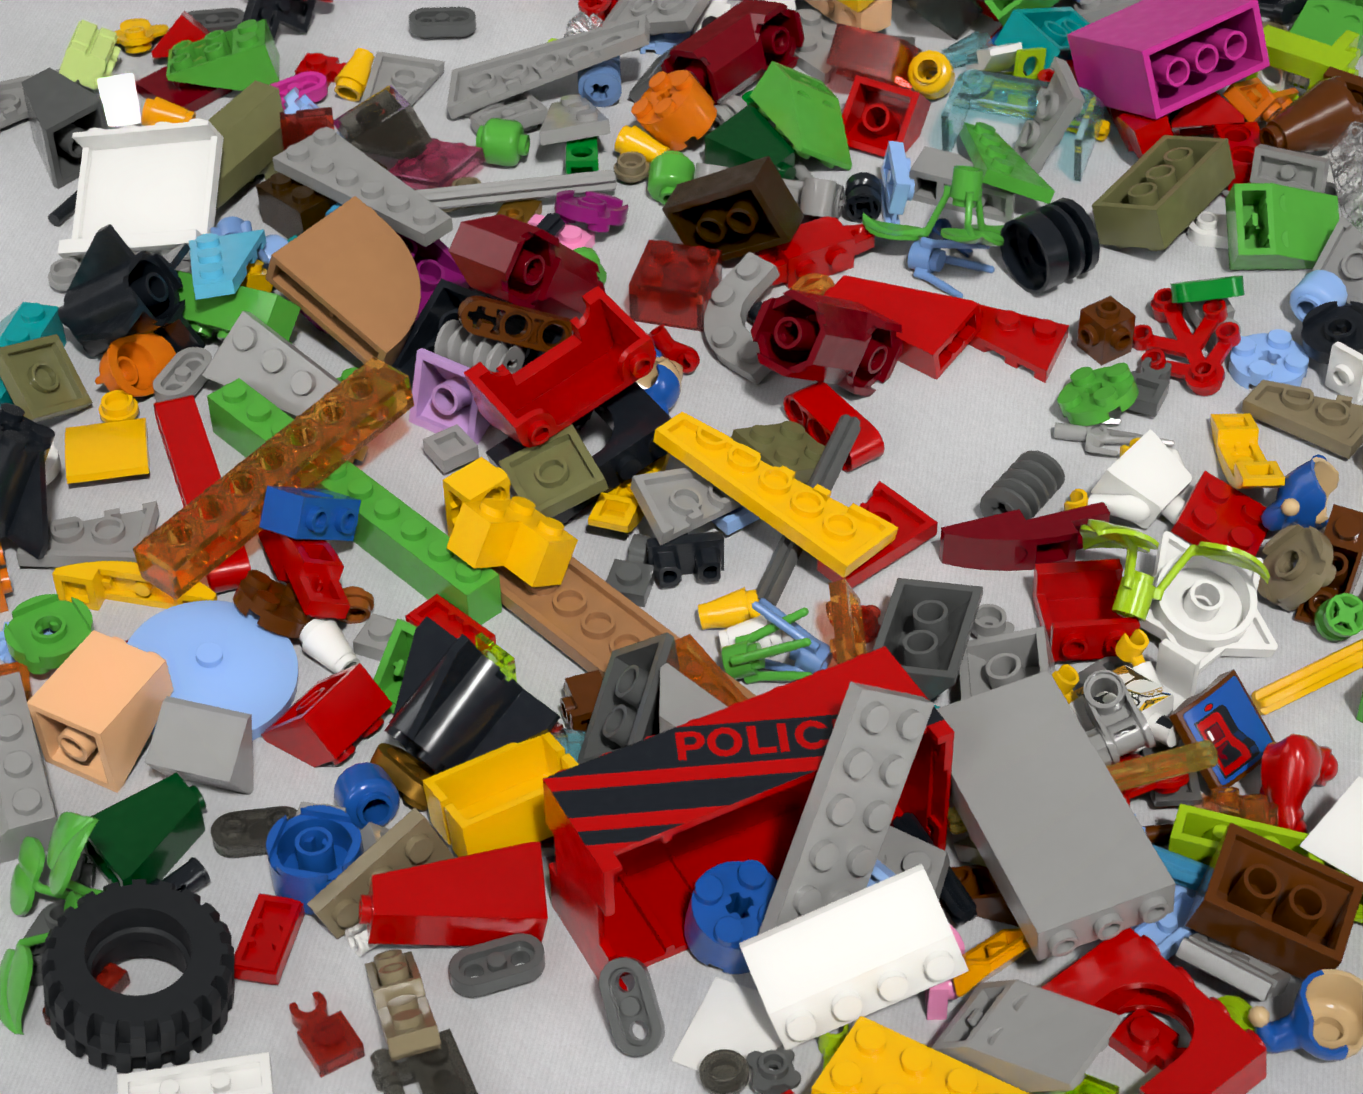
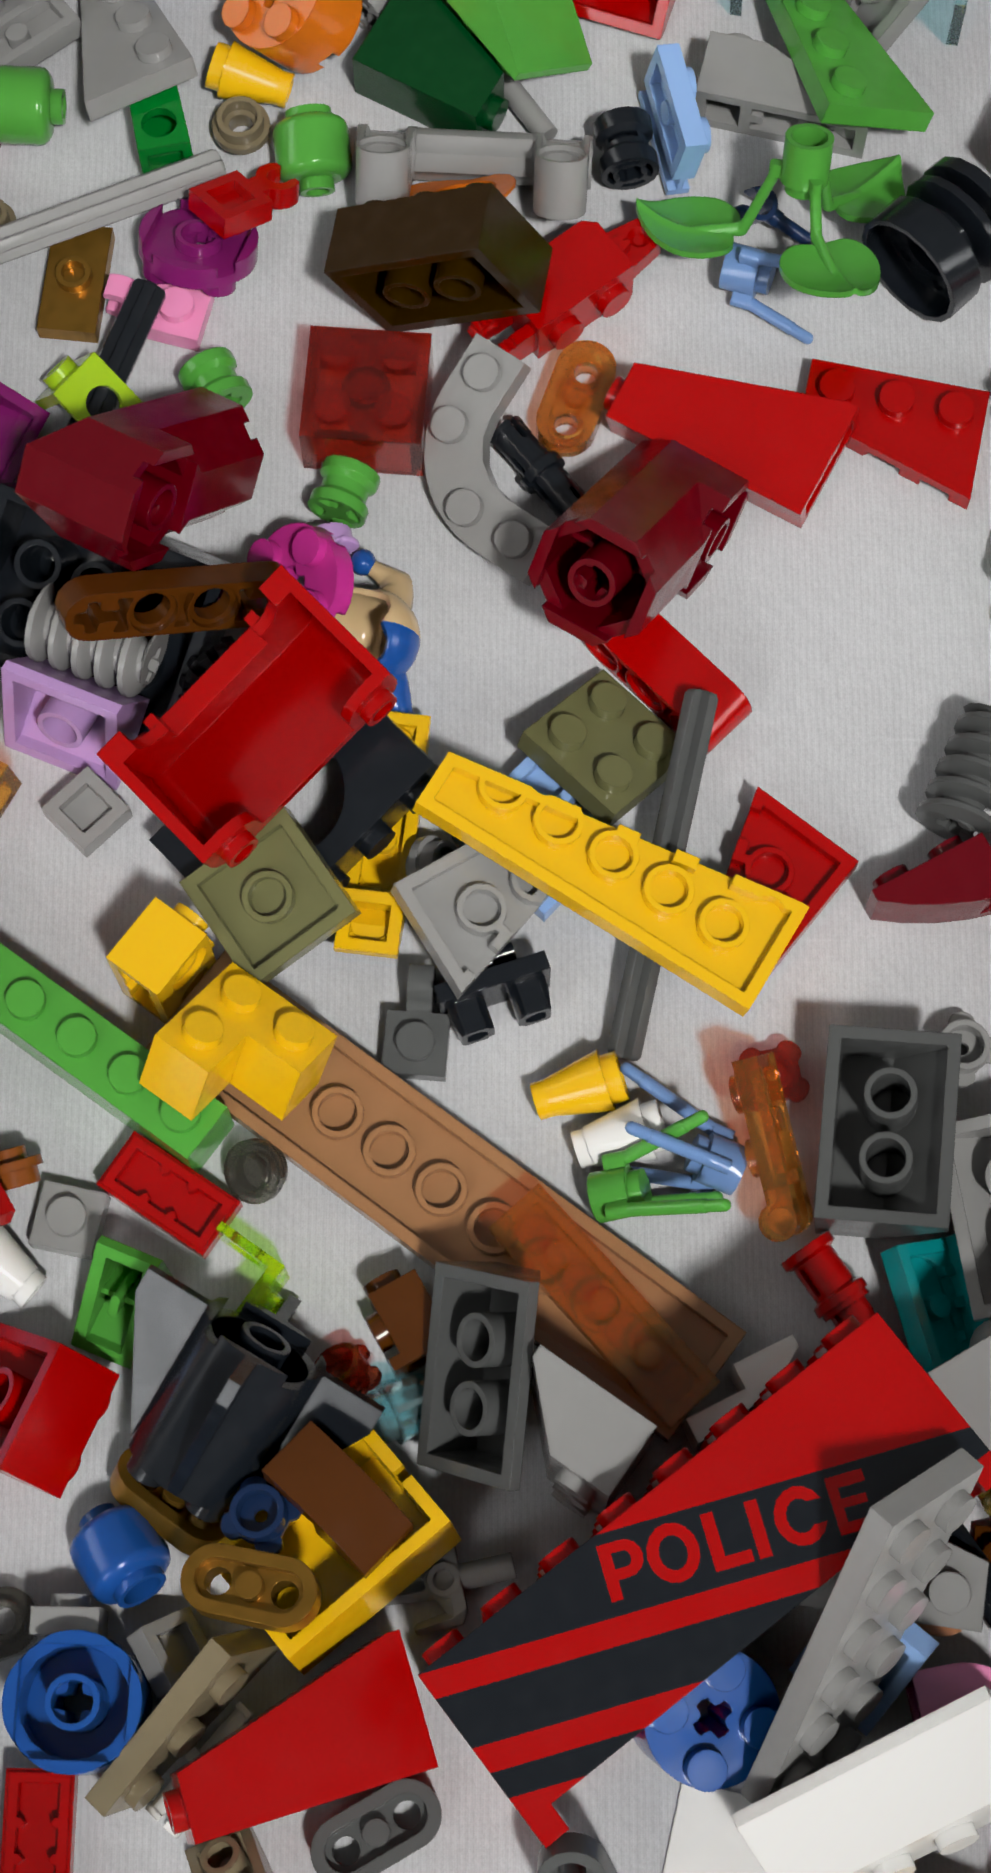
camera: 10 degrees left, 30 degrees up
(448, 784) = (254, 1587): none -> pearl gold plate
(464, 756) = (248, 1501): none -> dark blue plate
(510, 623) = (255, 1170): none -> clear smoke plate
(520, 750) = (338, 1499): none -> reddish brown slope
(617, 188) = (238, 203): none -> red plate
(654, 314) = (344, 491): none -> bright green wheel
(675, 350) = (391, 544): red arm -> none

